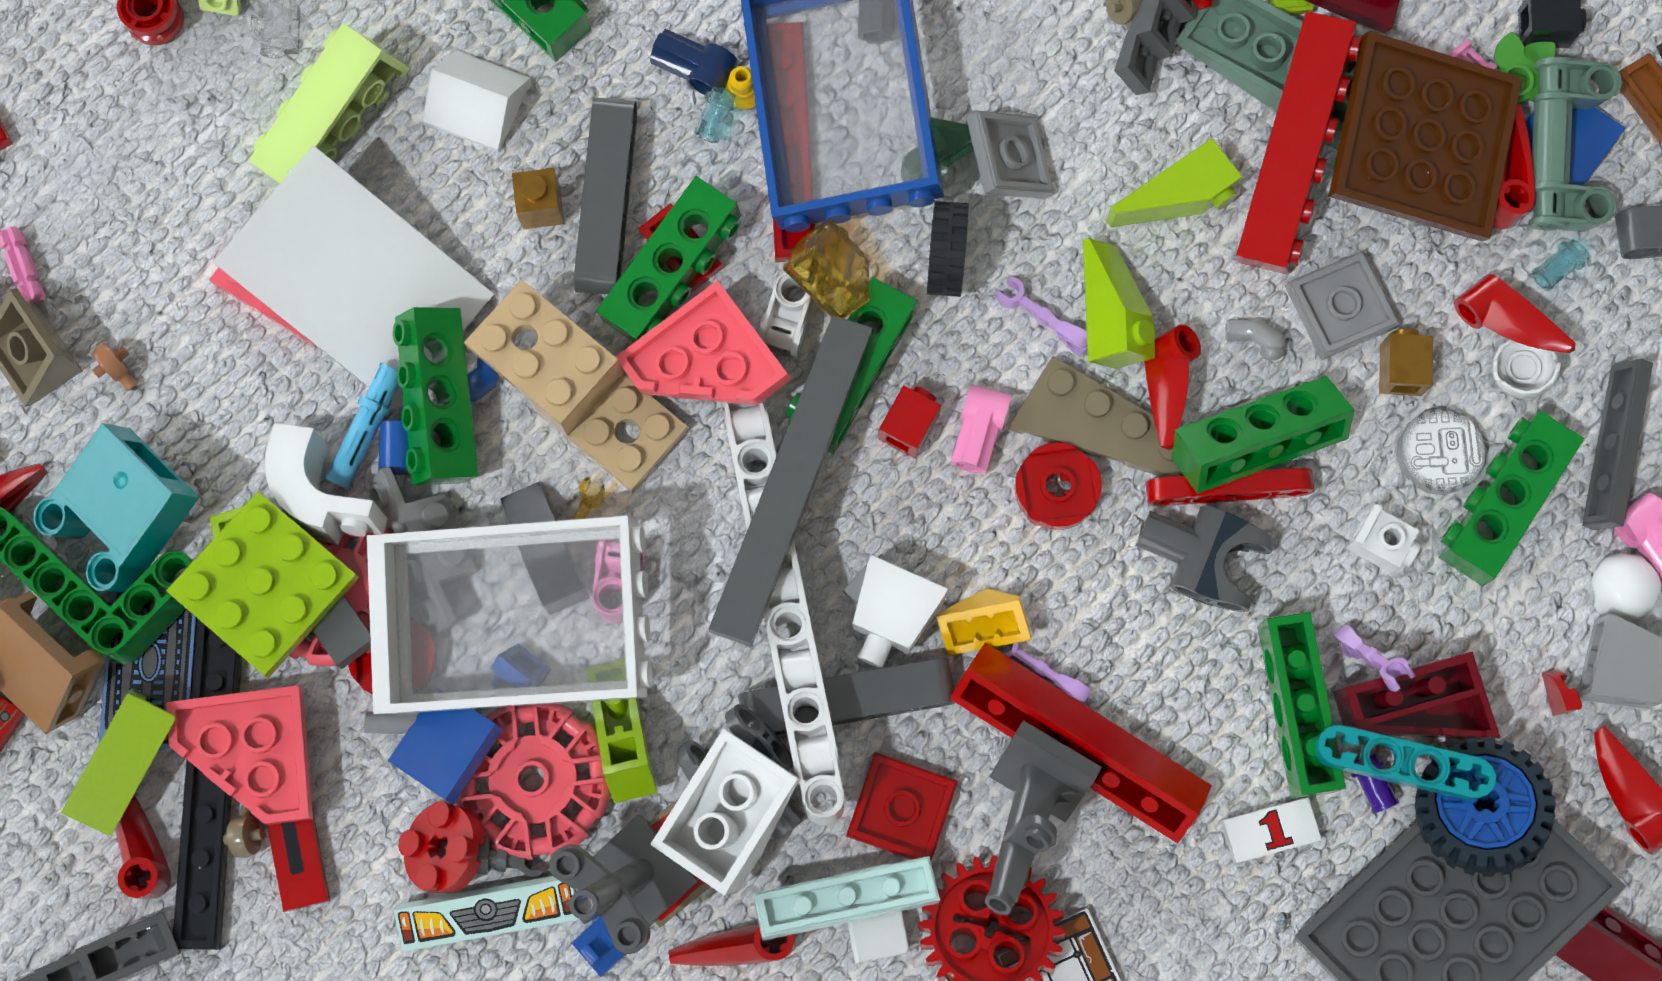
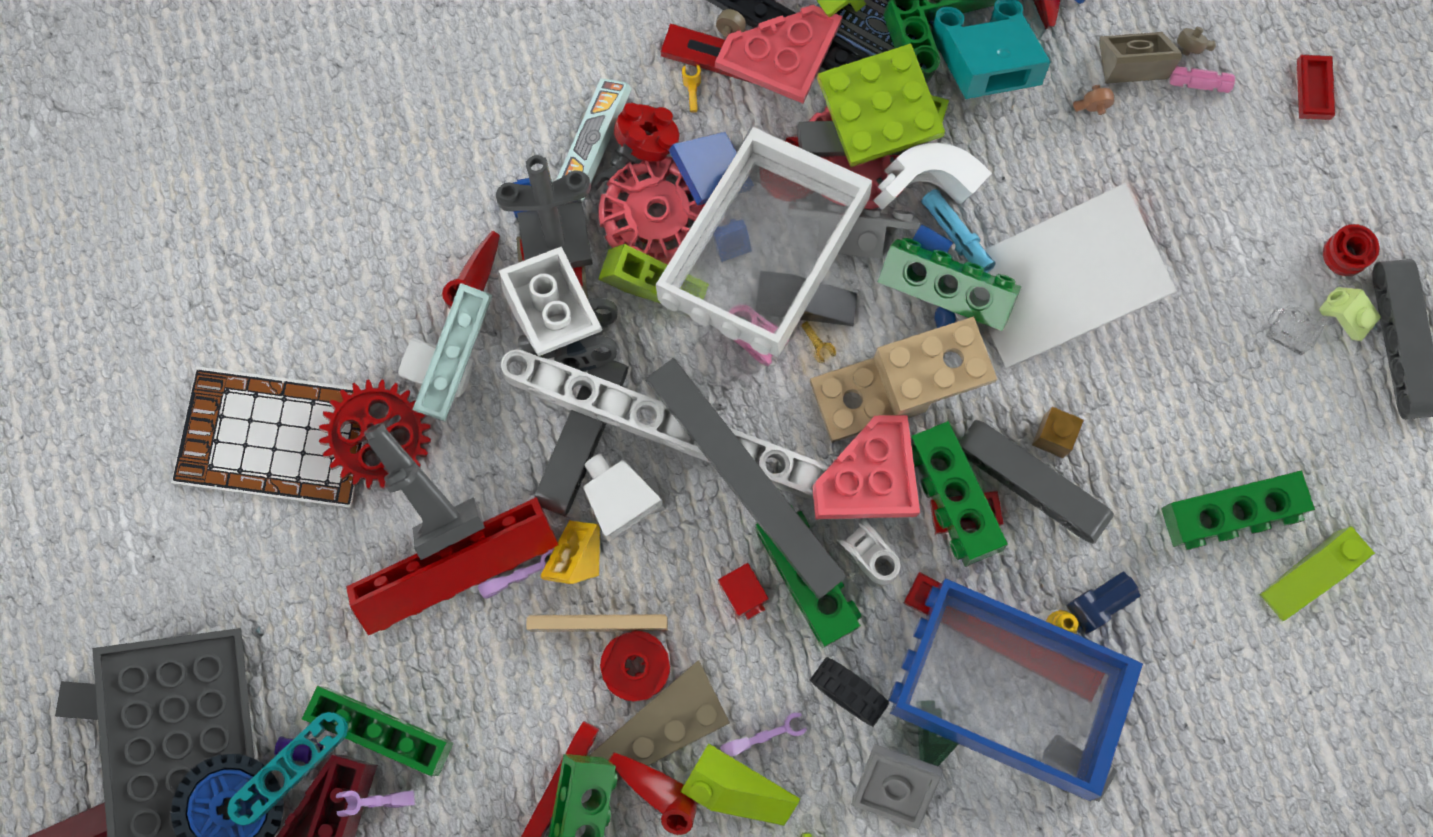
camera: 120 degrees right, 0 degrees up
(328, 101) = (1211, 330): yellowish green wedge -> none
(347, 839) = (692, 83): none -> yellow hand
(474, 99) = (1162, 434): white slope -> none
(716, 111) = (1057, 598): clear light blue pin -> none
(831, 269) = (883, 599): clear yellow torso -> none
(901, 808) = (490, 428): red tile -> none
(982, 419) = (714, 644): bright pink piece -> none
(1039, 551) = (596, 623): none -> tan tile
(1202, 553) = (526, 736): dark grey connector -> none
(1271, 830) = (316, 658): white tile -> none

